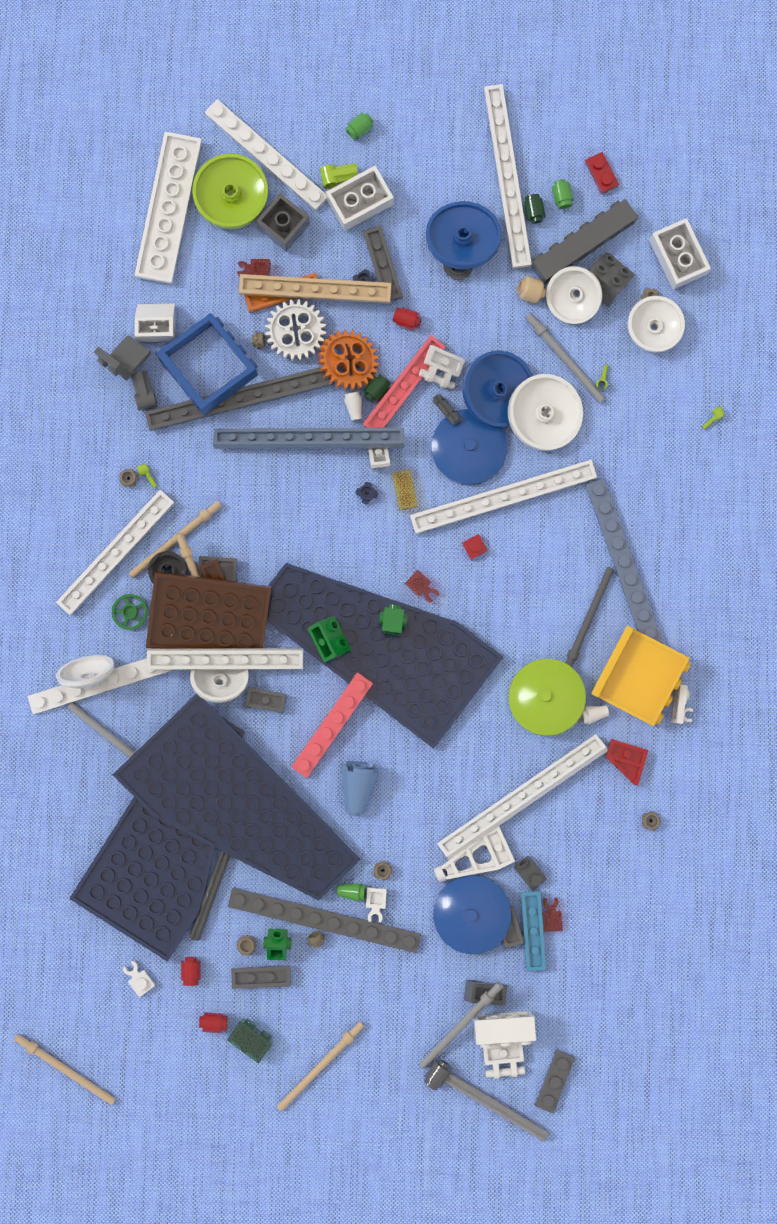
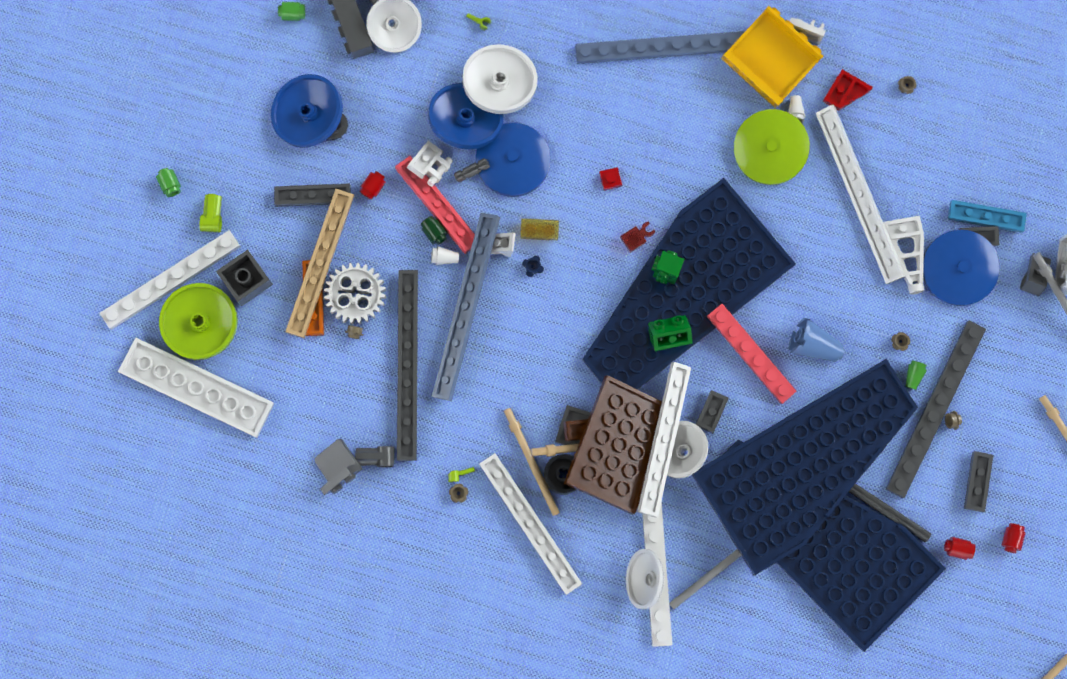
camera: 75 degrees left, 5 degrees down
(129, 611) = (592, 524): green wheel -> none
(140, 981) = (957, 600): white plate -> none
(155, 323) = (309, 427): white slope -> none
(225, 391) = (376, 414): blue window -> none
(246, 945) = (944, 488): dark tan plate -> none
(250, 1039) = (1037, 506): clear green brick -> none
(257, 267) = (282, 316): clear red plate -> none
(277, 944) = (951, 457): green brick -> none
(359, 198) = (241, 198): white brick -> none
(364, 274) = (317, 214): dark blue plate -> none
(364, 359) = (398, 250): orange gear -> none
(376, 899) = (928, 355): white plate -> none
(503, 496) = (569, 140): white plate -> none
(507, 176) = (259, 57): white plate -> none
(530, 873) = (931, 205): dark grey bracket -> none
(531, 289) = (376, 63): tan head -> none
(534, 208) = (298, 40): dark green brick -> none
(541, 331) = (418, 65): light grey bar -> none
(551, 918) = (977, 196): clear red plate -> none
(573, 652) = (734, 114): dark grey bar -> none

